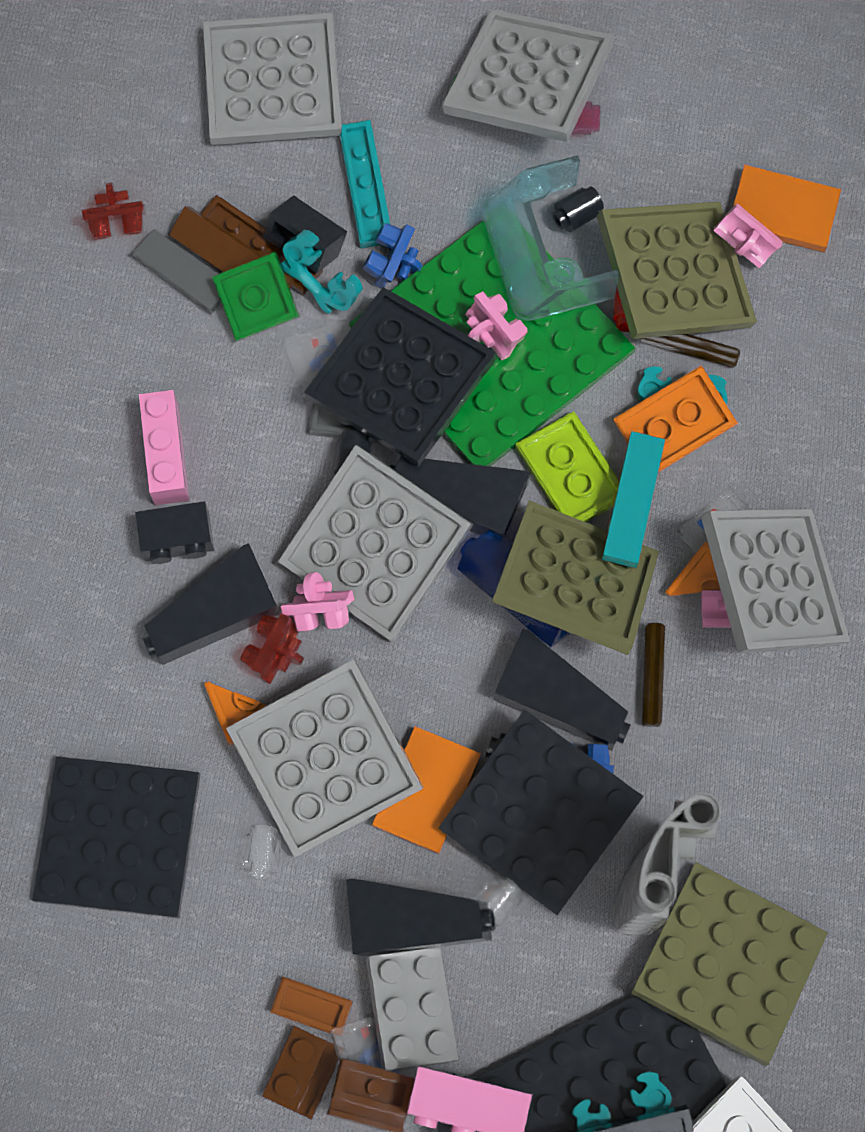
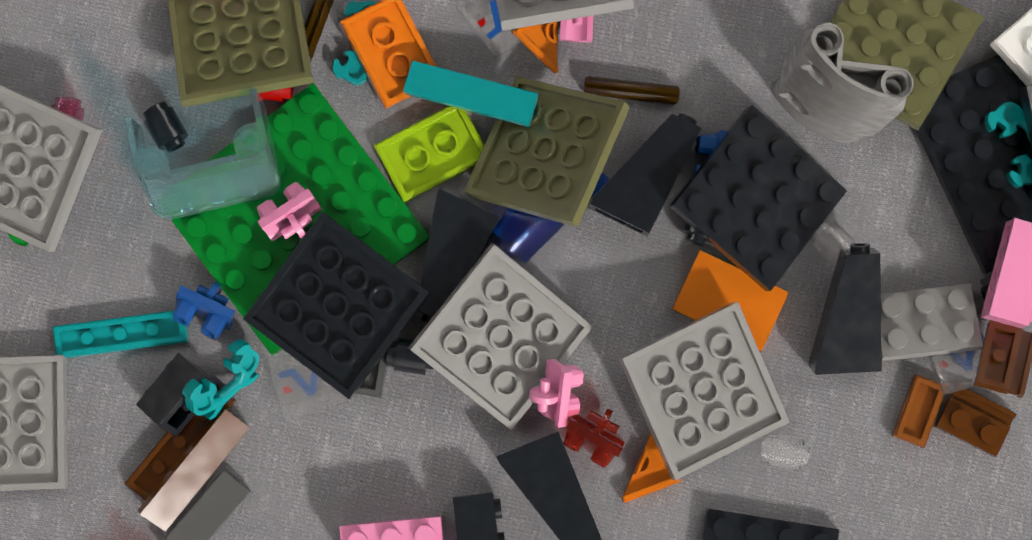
camera: 90 degrees left, 10 degrees up
(256, 296) = (241, 445): green tile -> none

